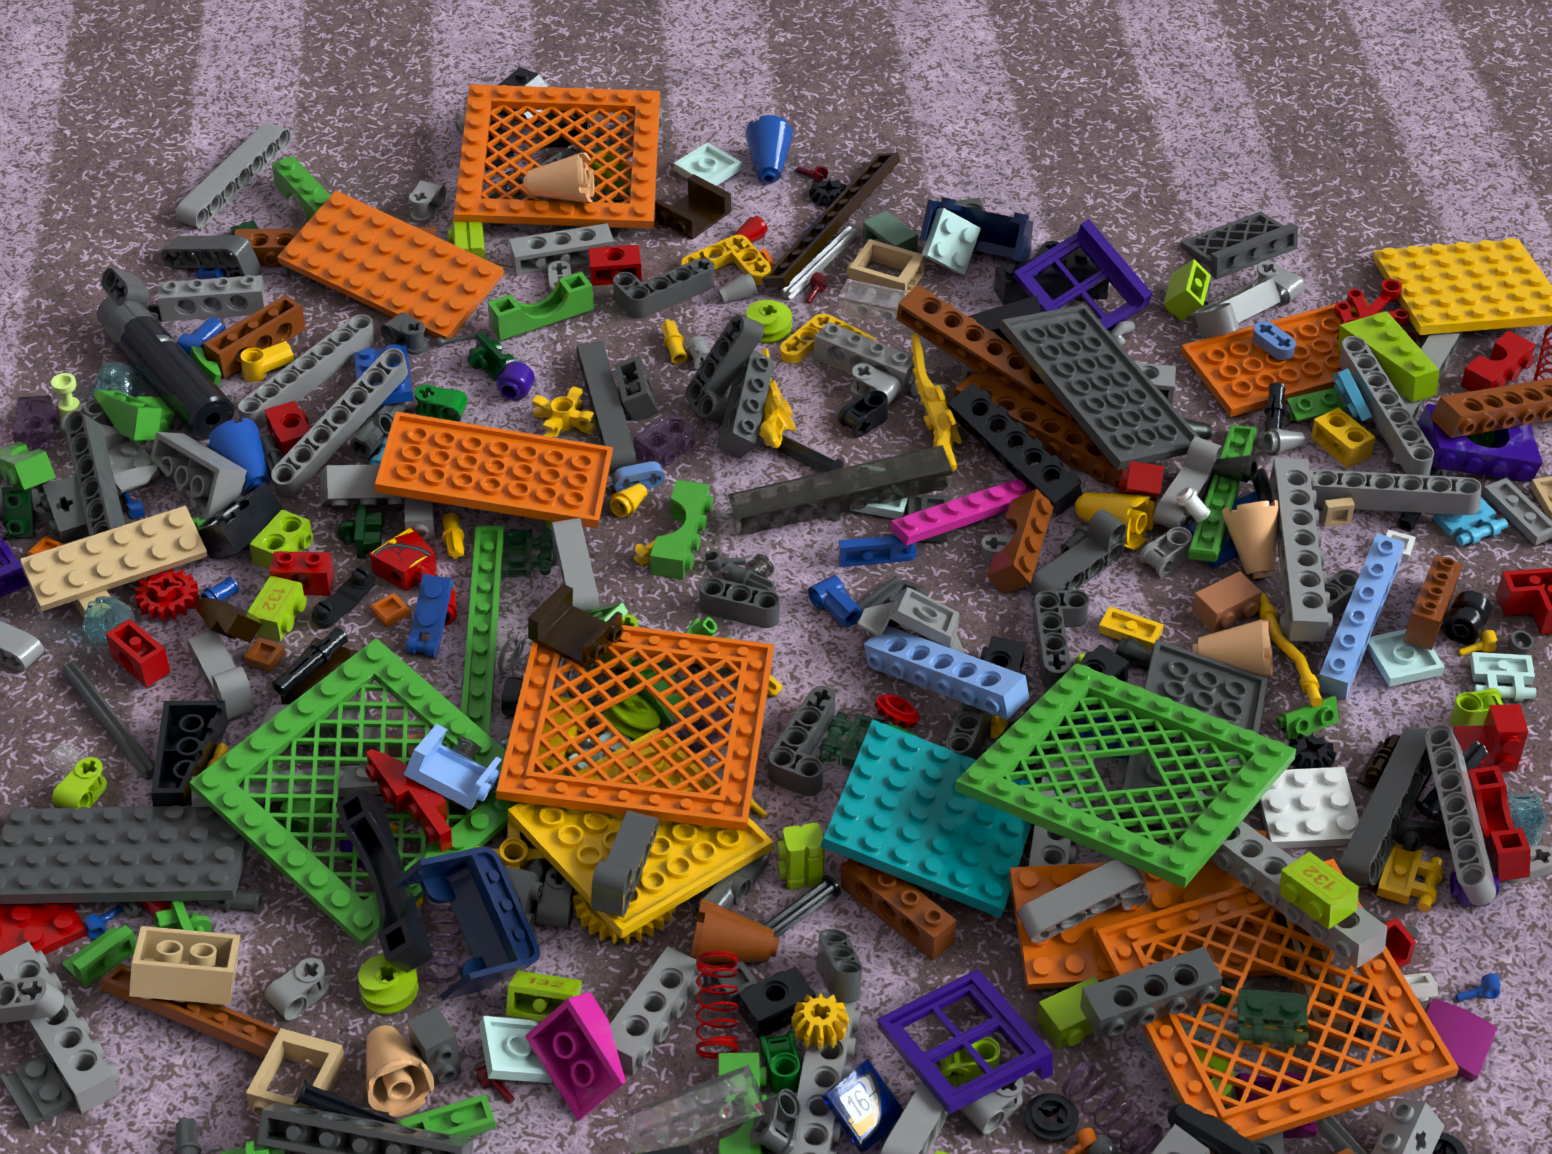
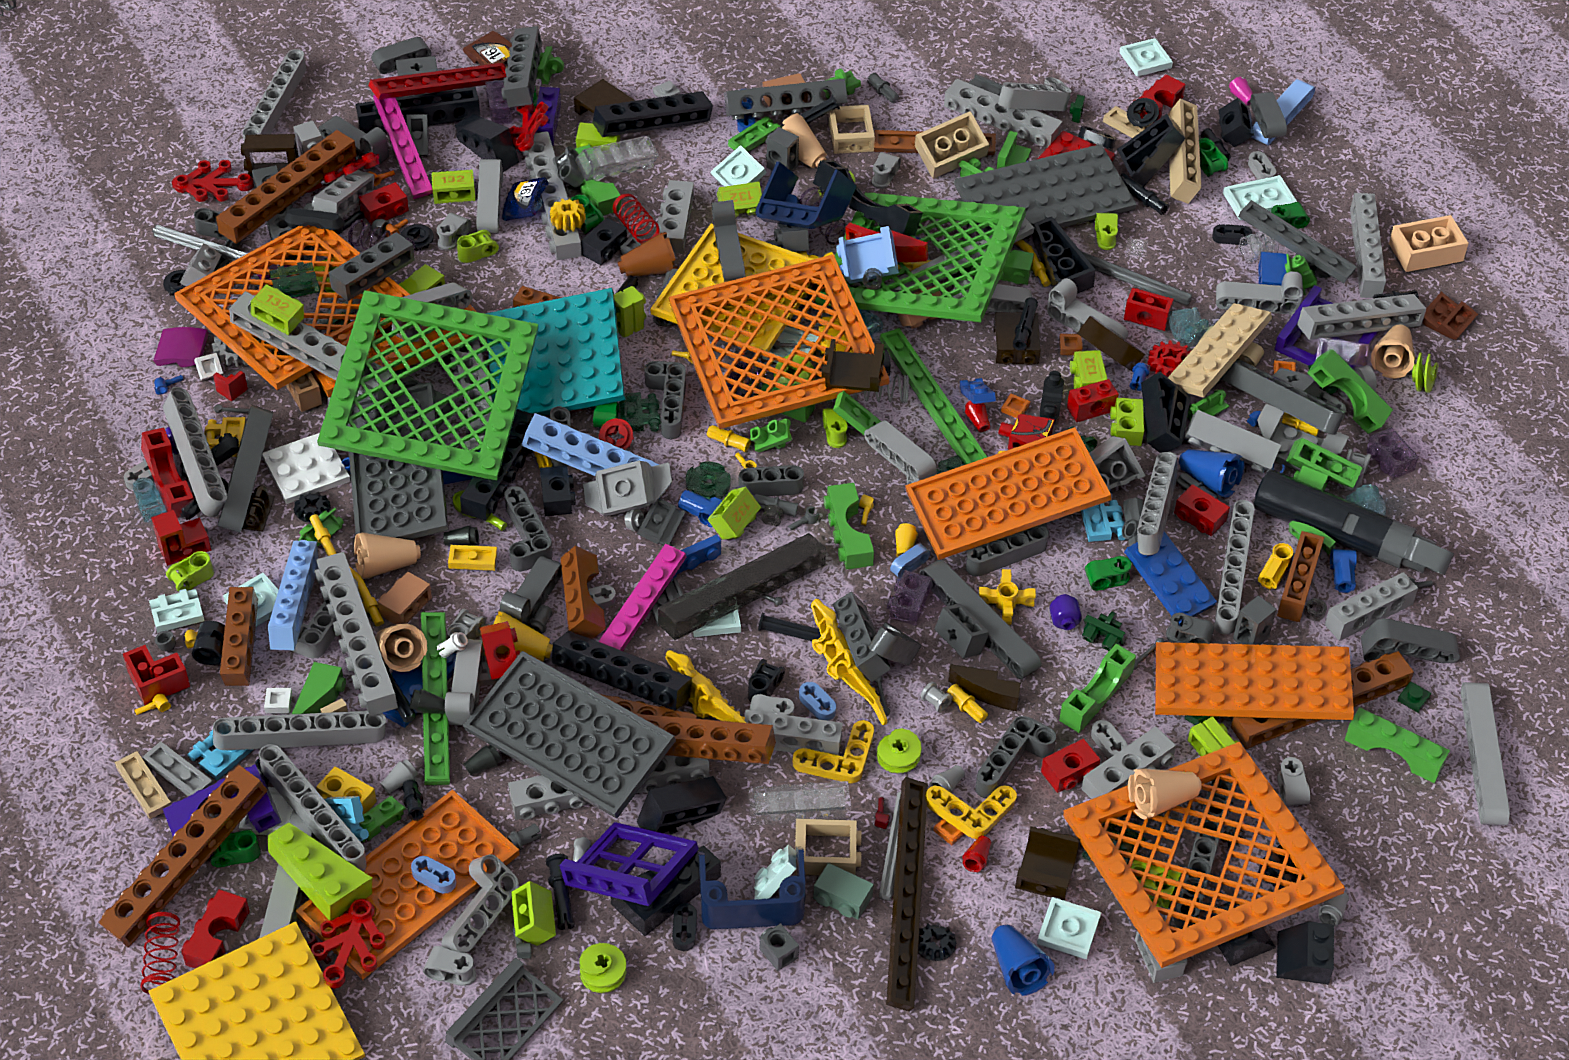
camera: 155 degrees right, 5 degrees up
(64, 385) = (1378, 469): yellowish green piece -> none
(342, 300) = (1254, 622): none -> dark grey brick
(579, 1053) = (703, 170): dark pink slope -> none
(646, 343) = (985, 686): none -> dark brown slope
(753, 635) = (746, 464): none -> yellow hand
(805, 571) = (734, 513): none -> lime brick
(812, 643) = (714, 471): none -> clear green plate
(819, 173) = (958, 966): dark red hand -> none
(825, 387) = (820, 699): none -> medium blue beam
(839, 965) = (569, 248): dark grey beam -> none
(1002, 1017) = (460, 259): dark purple window -> none
(1137, 246) = (598, 978): none -> lime piece
(1150, 316) = (561, 891): none -> black pin
(1178, 358) = (524, 836): none -> dark grey pin
(1352, 535) = (320, 688): none -> bright green slope

